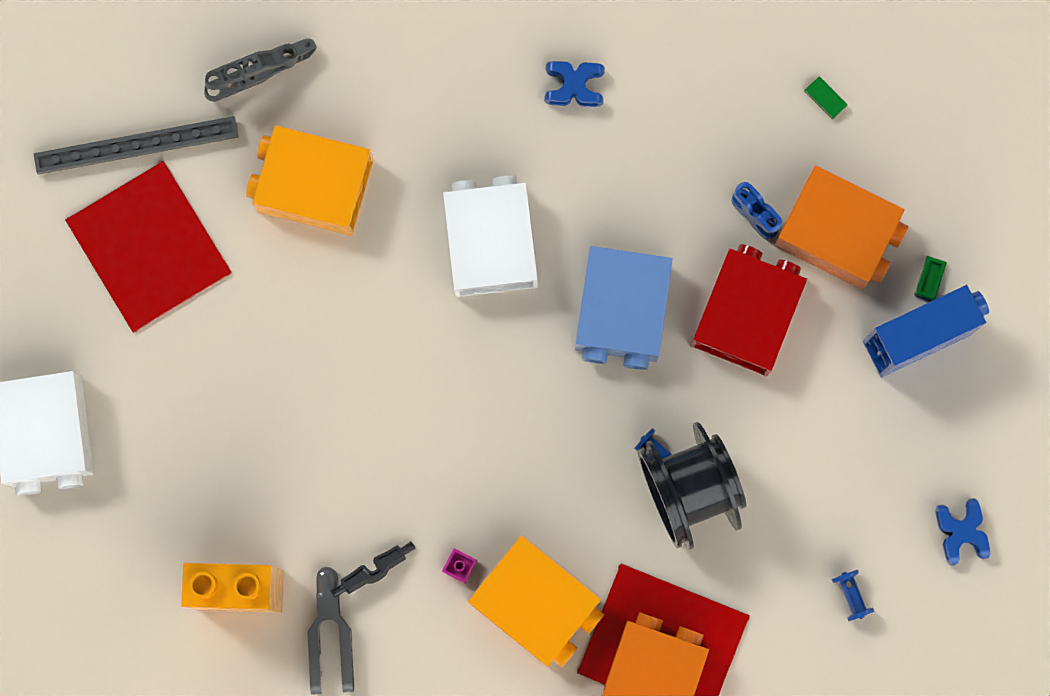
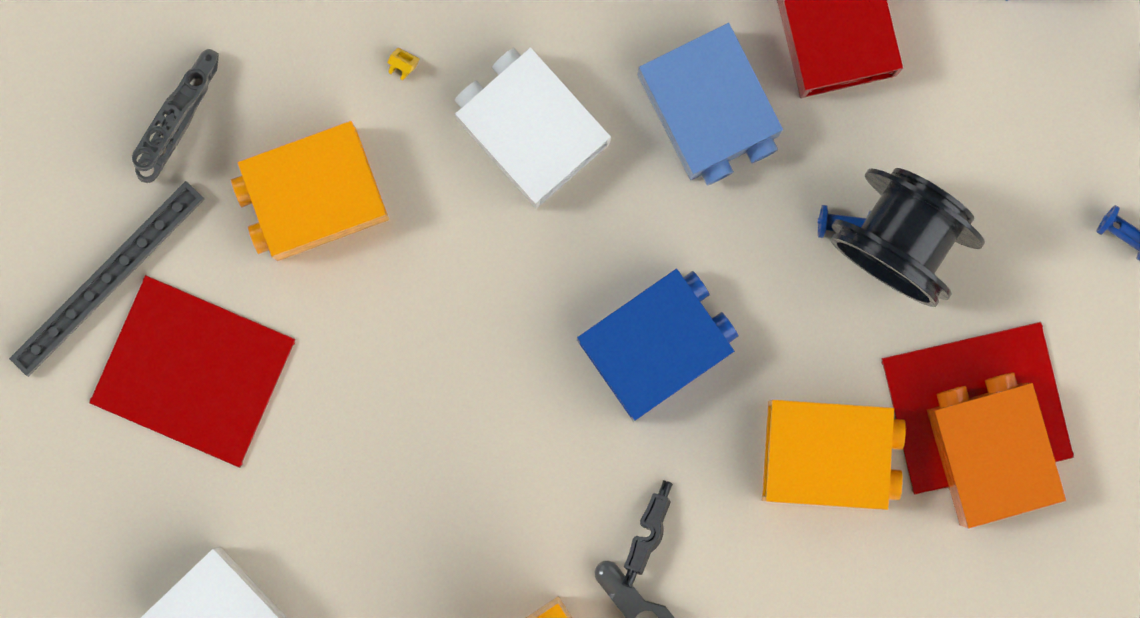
camera: 40 degrees left, 5 degrees up
(436, 136) = (403, 61): none -> yellow tile
(459, 565) = (728, 471): dark pink piece -> none
(471, 443) = (658, 342): none -> blue brick

